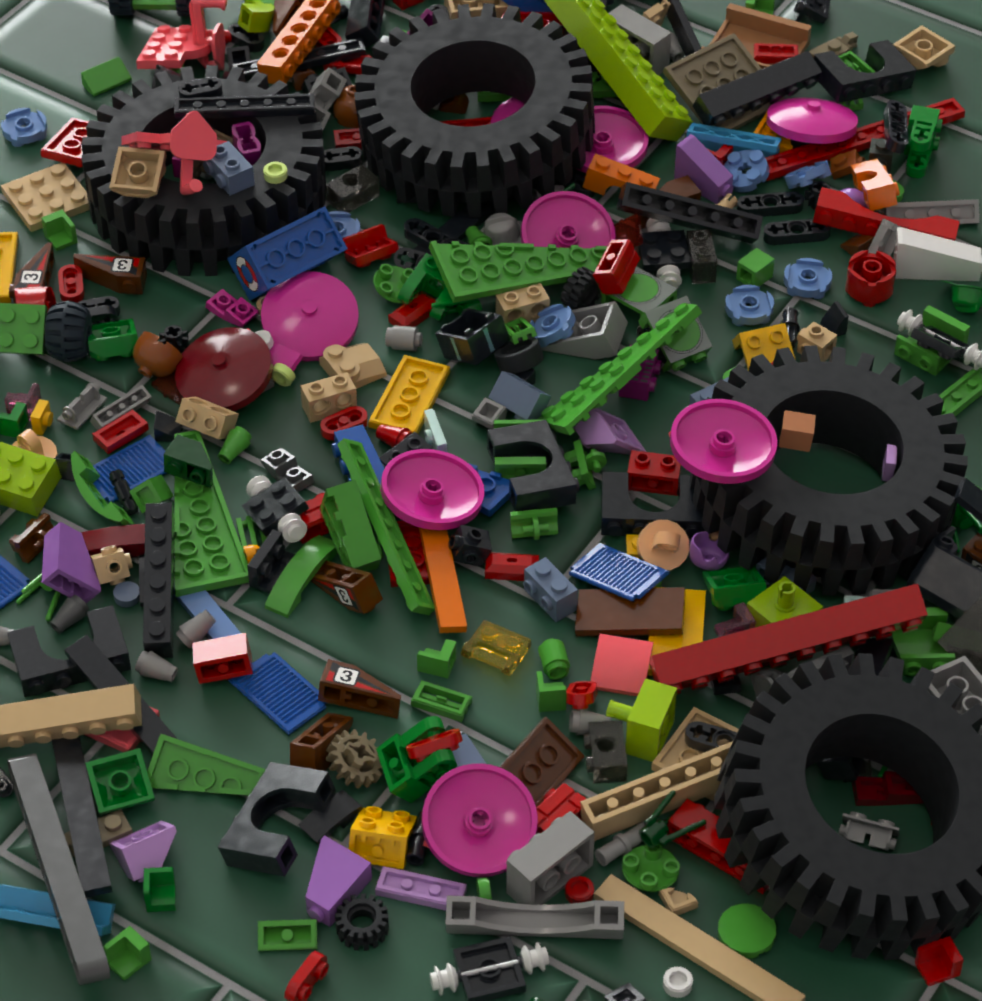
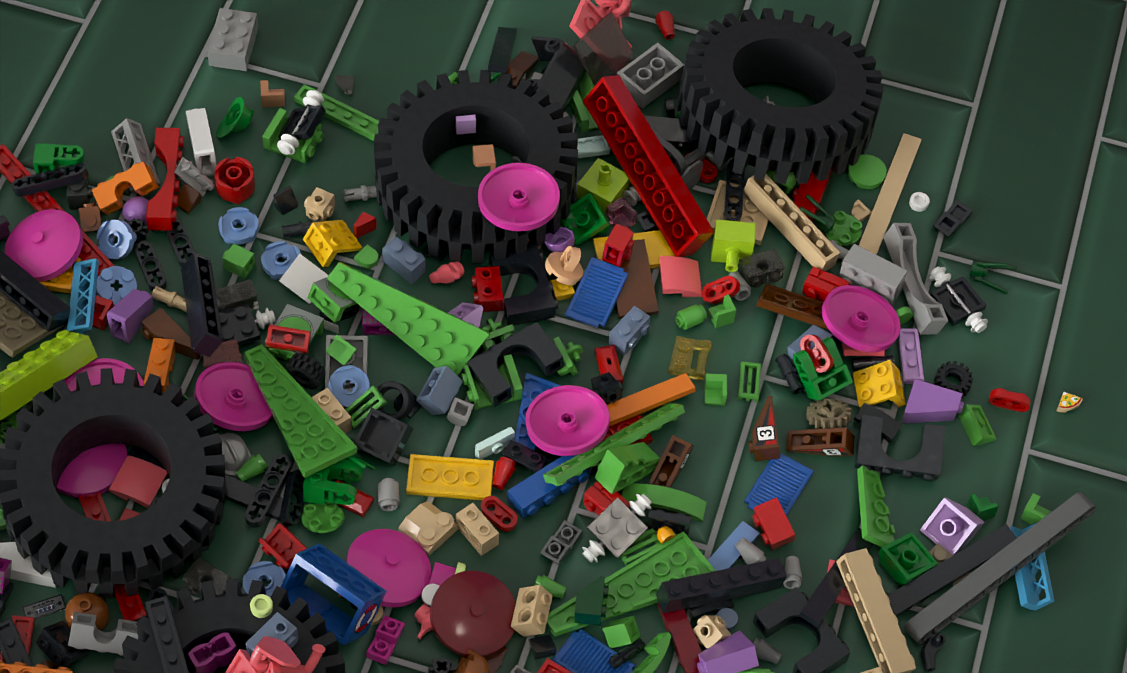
camera: 110 degrees left, 10 degrees up
(591, 312) = (341, 350): none -> bright green panel
(663, 578) = (618, 245): none -> red brick
(720, 318) = (301, 277): none -> white sticker

